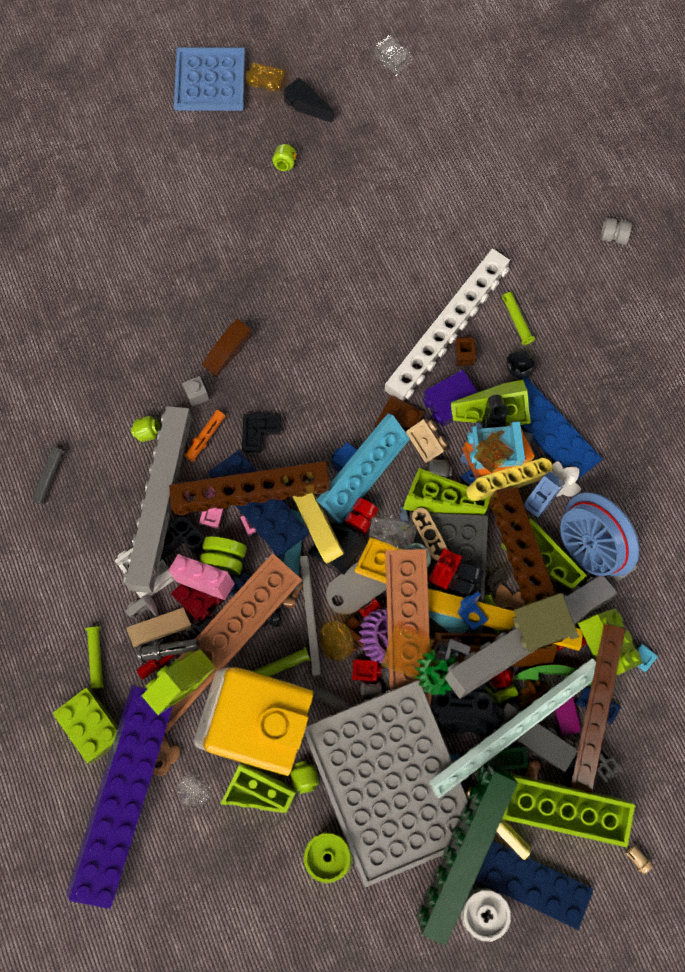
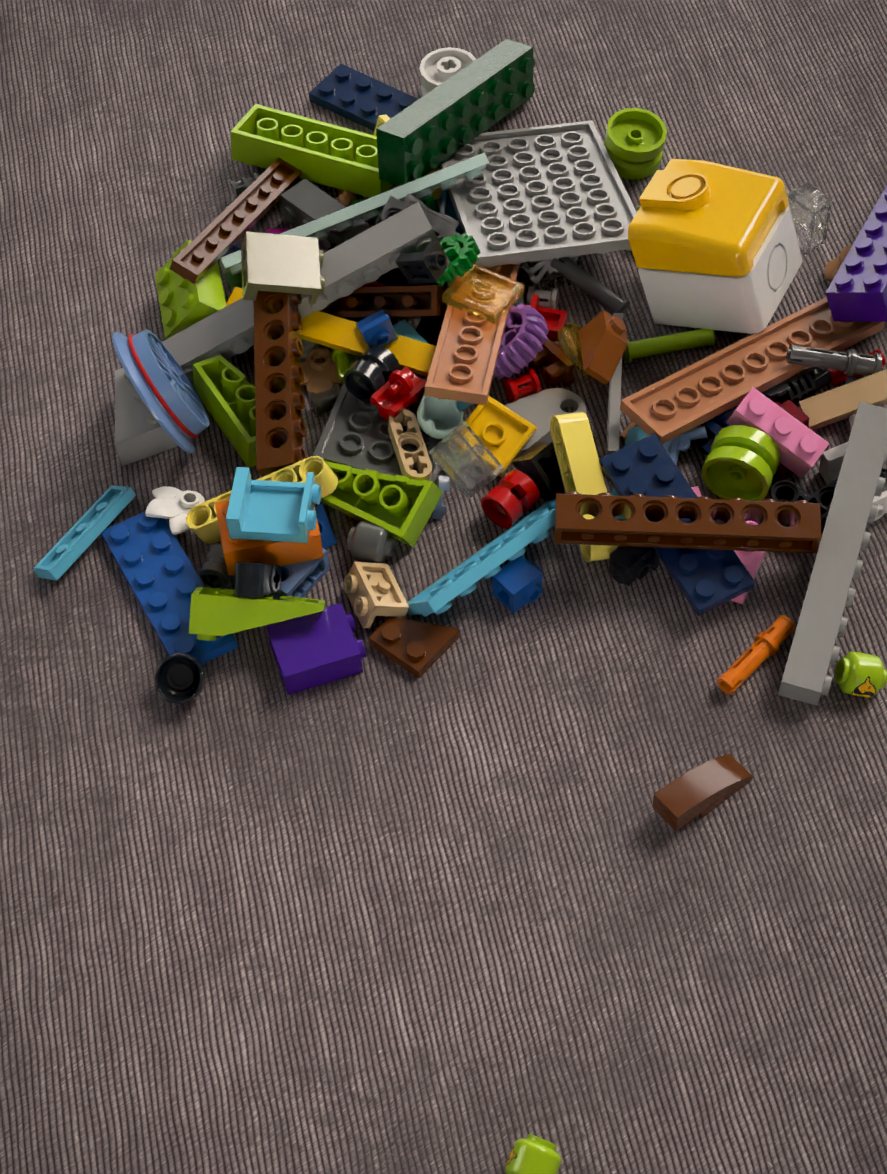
camera: 165 degrees left, 20 degrees down
(177, 681) = (818, 289): lime brick -> none
(195, 391) = (767, 720): light grey brick -> none
(257, 425) = (662, 656): black plate -> none
(321, 634) = (602, 345): none -> dark orange slope
(465, 358) = (269, 718): reddish brown brick -> none
(492, 262) = (279, 786): white brick -> none
(493, 452) = (282, 480): clear orange bracket -> none
(518, 318) = (155, 765): lime pin -> none
(544, 494) = (209, 476): medium blue brick -> none
(611, 457) = (84, 532): none -> medium azure tile
(639, 859) = (238, 106): tan pin -> none
(647, 657) = (145, 296): medium azure tile -> none

